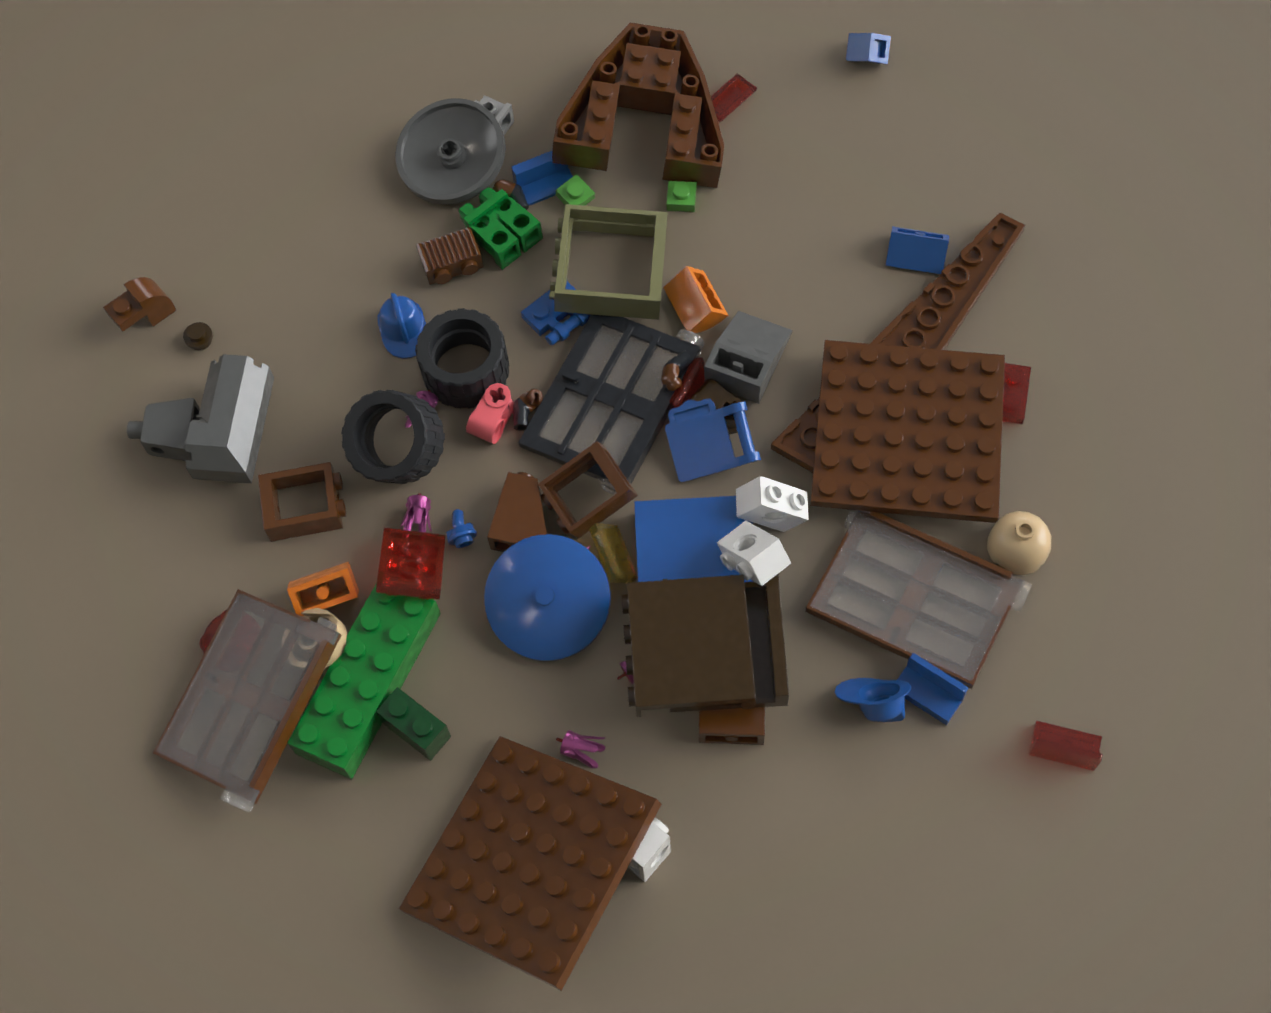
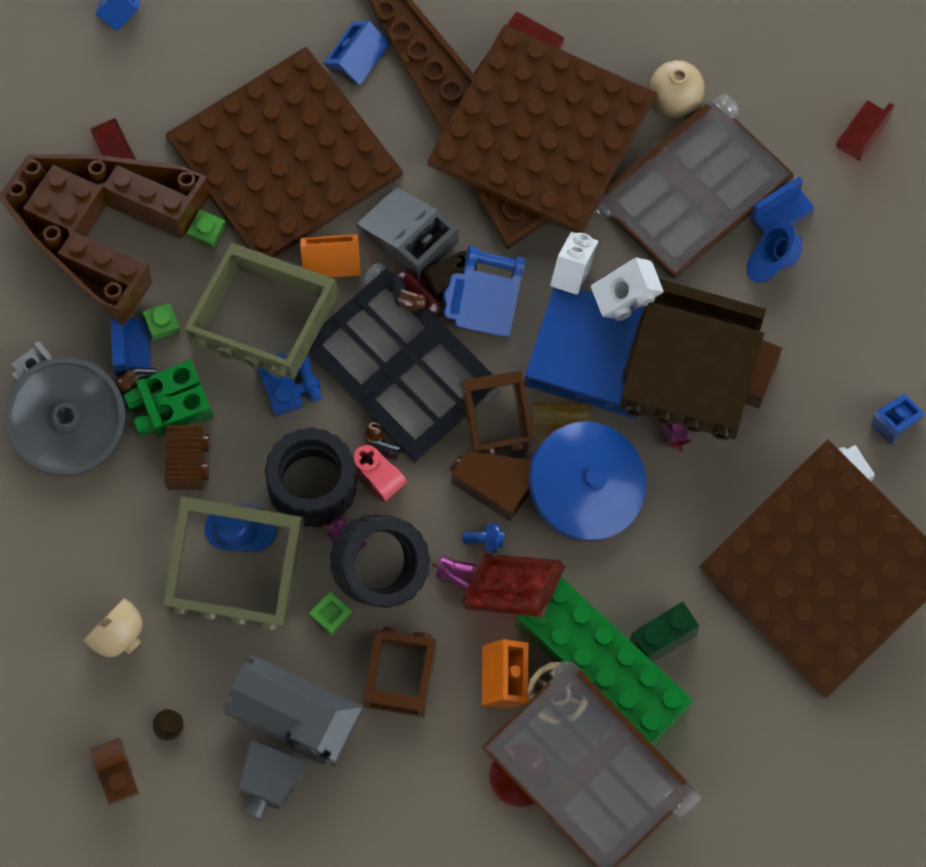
camera: 75 degrees left, 5 degrees up
(266, 261) = (117, 631): none -> tan cylinder
(333, 425) = (330, 613): none -> bright green plate
(399, 356) = (213, 610): none -> olive window
(574, 742) = (730, 505): flat silver piece -> none
(736, 882) = (896, 418): none -> blue slope
(784, 231) = (284, 154): none -> reddish brown plate

